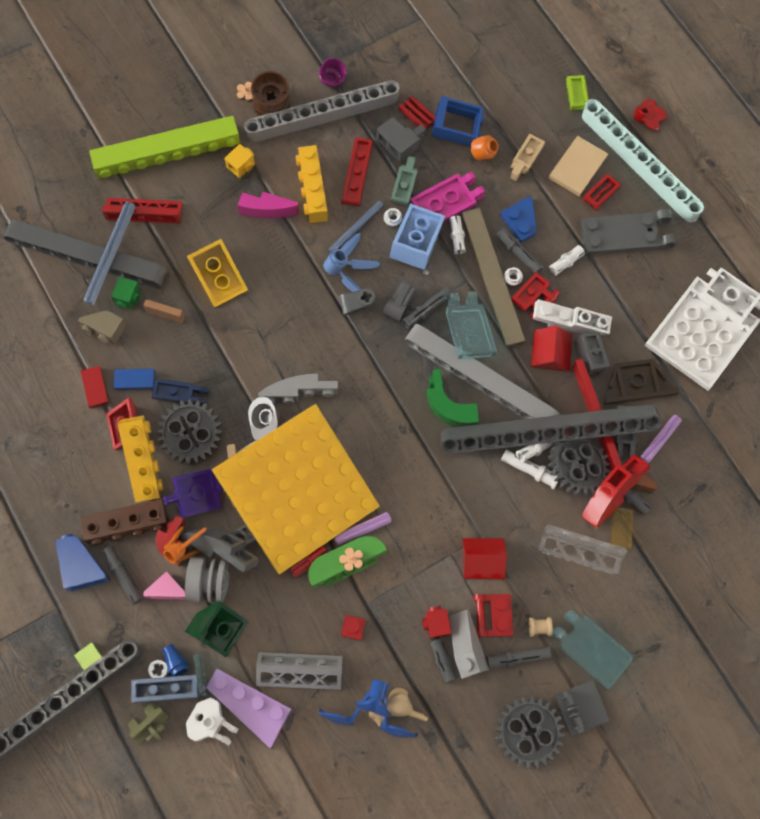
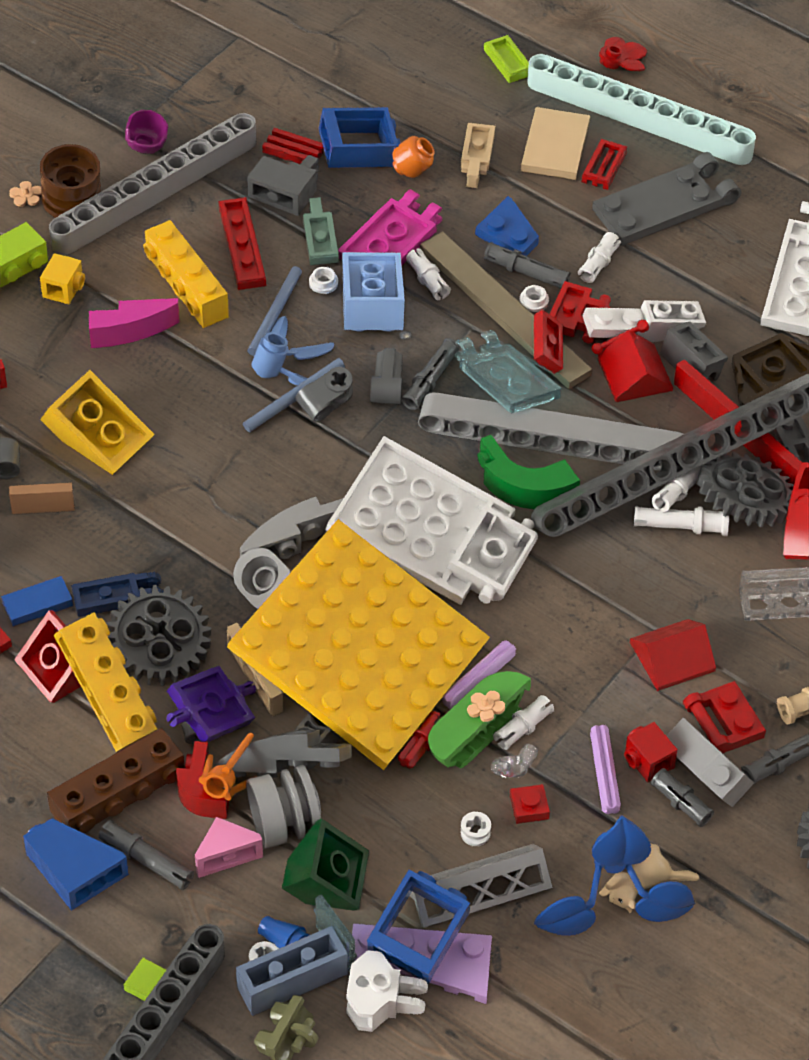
camera: 20 degrees left, 20 degrees down
(230, 708) = (403, 956): none -> blue window
(315, 639) = (468, 823): none -> white bush
(334, 294) = (286, 400): none -> sand blue bar
(356, 600) = (515, 765): none -> clear arm
(373, 572) = (523, 722): none -> white pin
(378, 419) = (436, 525): none -> white plate
(407, 622) = (605, 769): none -> lavender axle
(505, 314) = (548, 341): none -> red plate
(567, 325) = (642, 326): none -> red hinge

